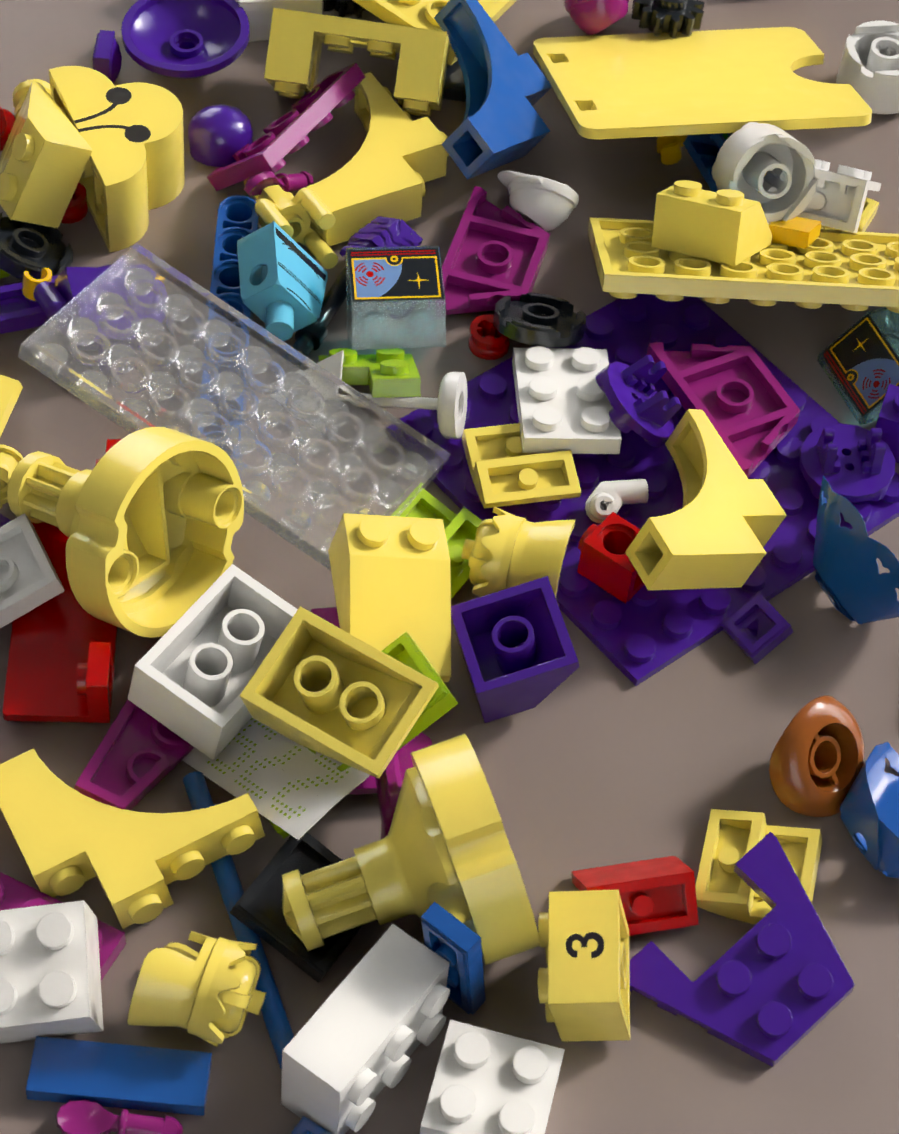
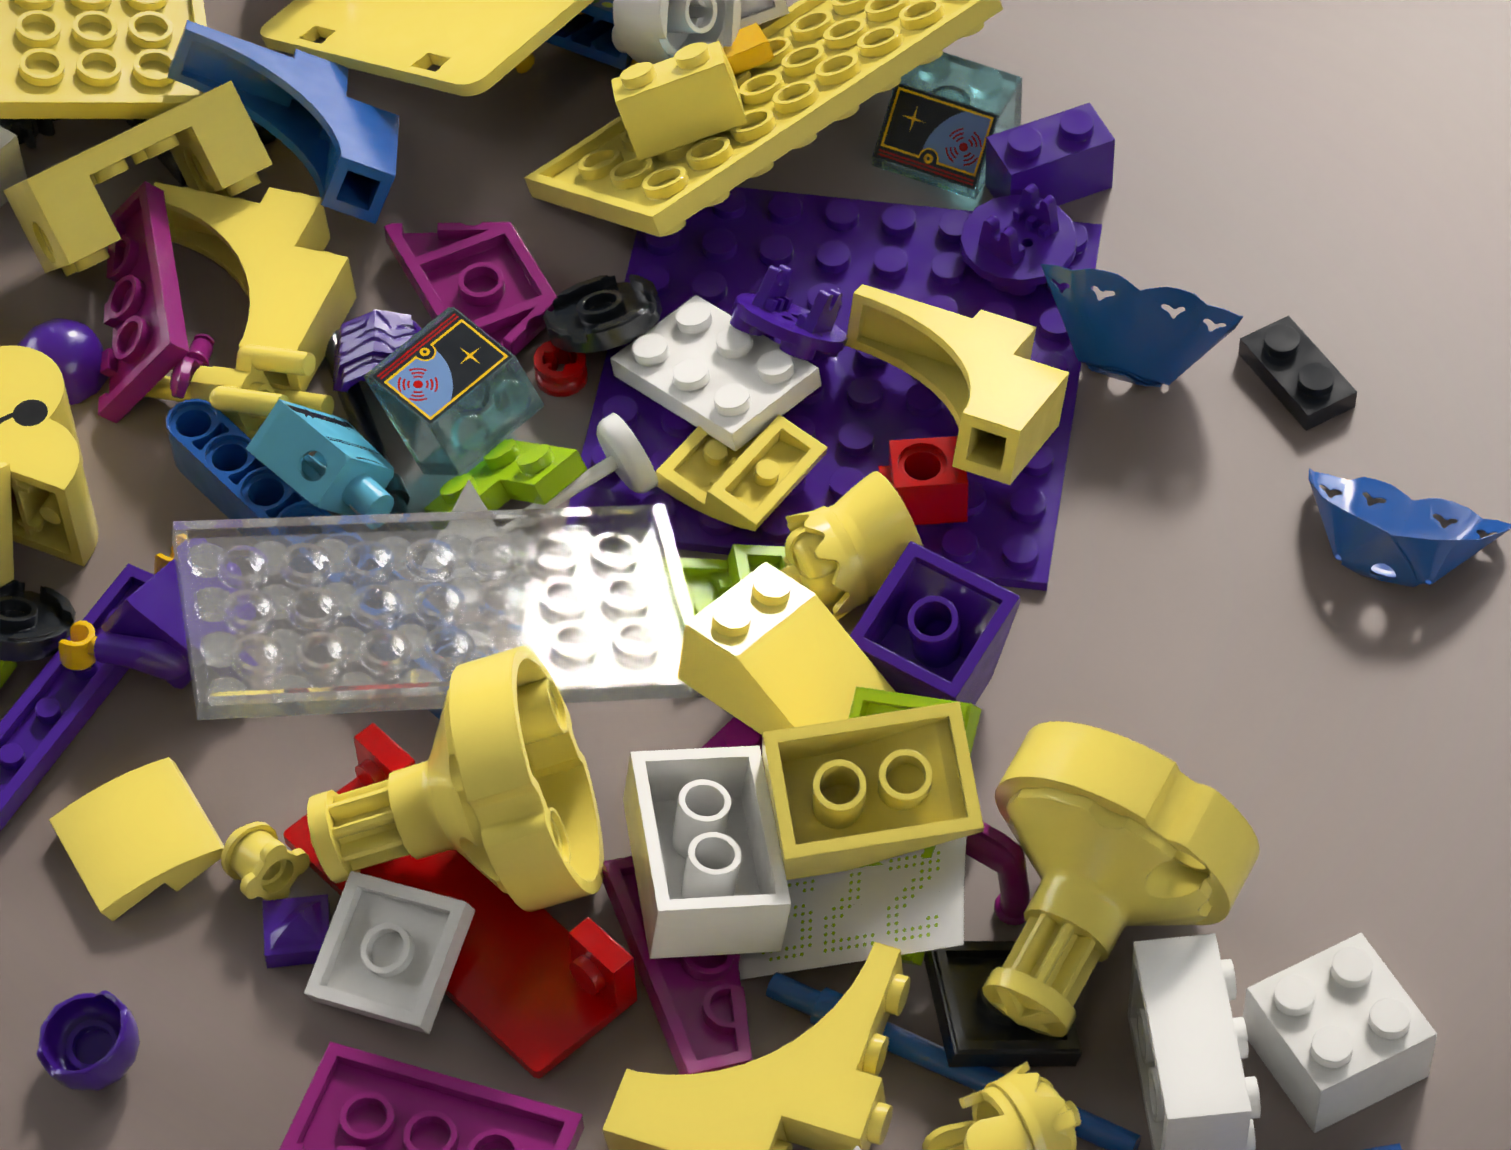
camera: 35 degrees left, 0 degrees up
(462, 950) = (1209, 909): blue tile -> none
(539, 198) = (463, 195): white hat -> none
(587, 965) = (1310, 850): light yellow brick -> none
(611, 496) = (852, 429): white arm -> none
(653, 892) = (1262, 762): red panel -> none
(727, 840) = (1324, 664): light yellow slope -> none
(734, 393) = (849, 245): magenta wing -> none
(756, 628) = (1098, 454): dark purple tile -> none
(770, 981) = (1438, 745): dark purple wing -> none
(817, 758) = (1280, 528): dark orange hat -> none

